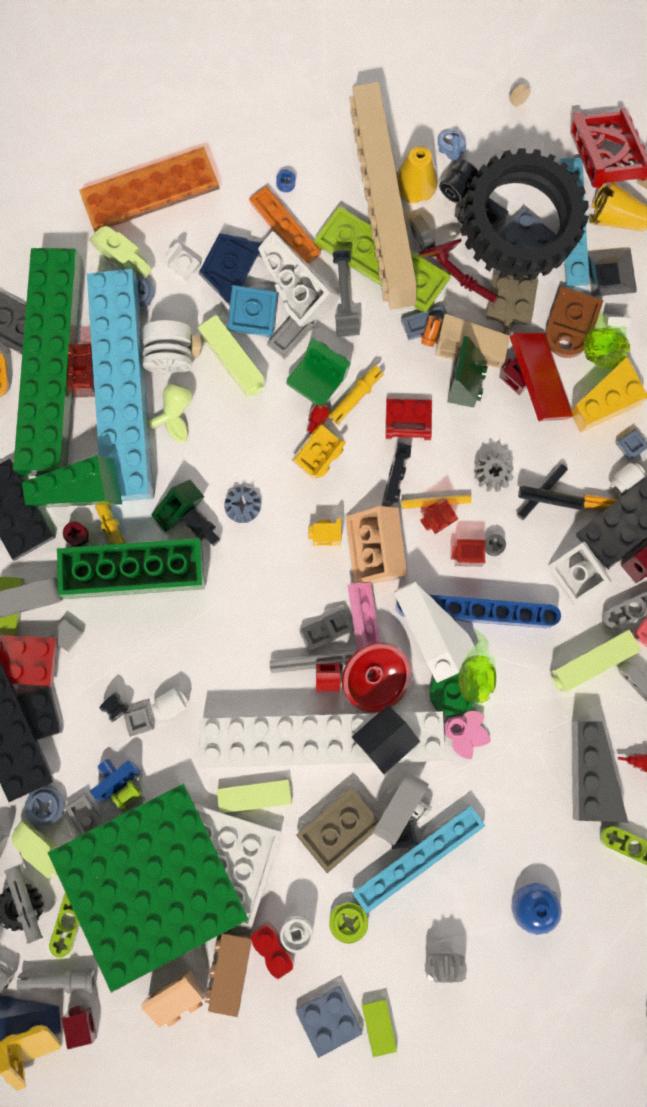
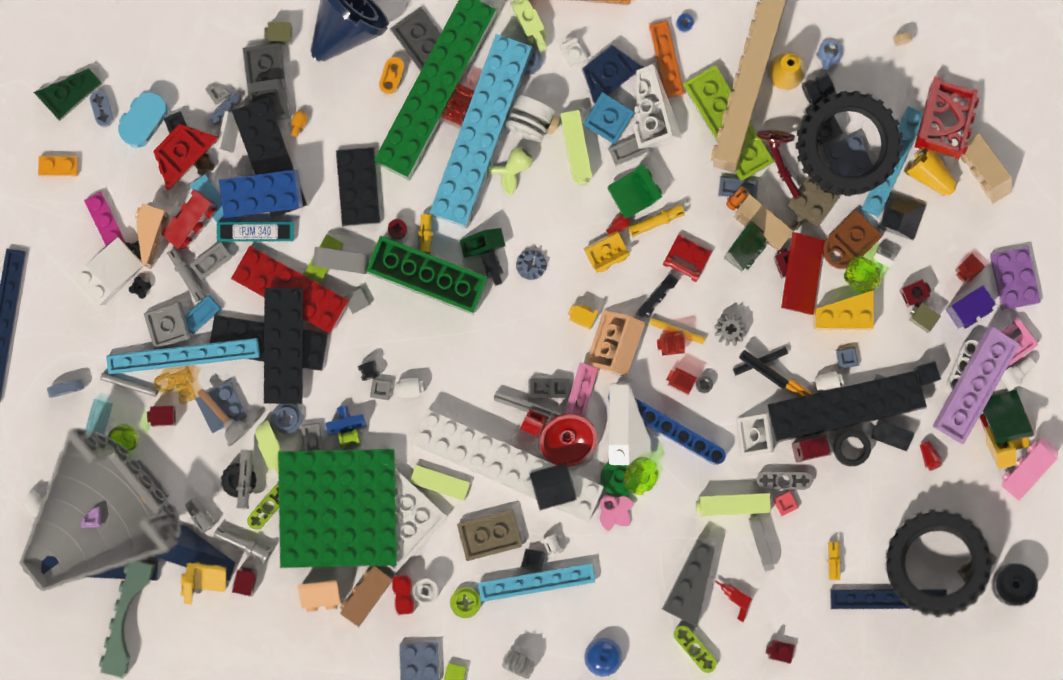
camera: 25 degrees right, 5 degrees up
(78, 484) = (419, 196): green wedge -> none
(346, 322) = (676, 160): dark grey piece -> none
(400, 808) = (540, 539): light grey beam -> none
(422, 232) = (768, 117): dark grey beam -> none

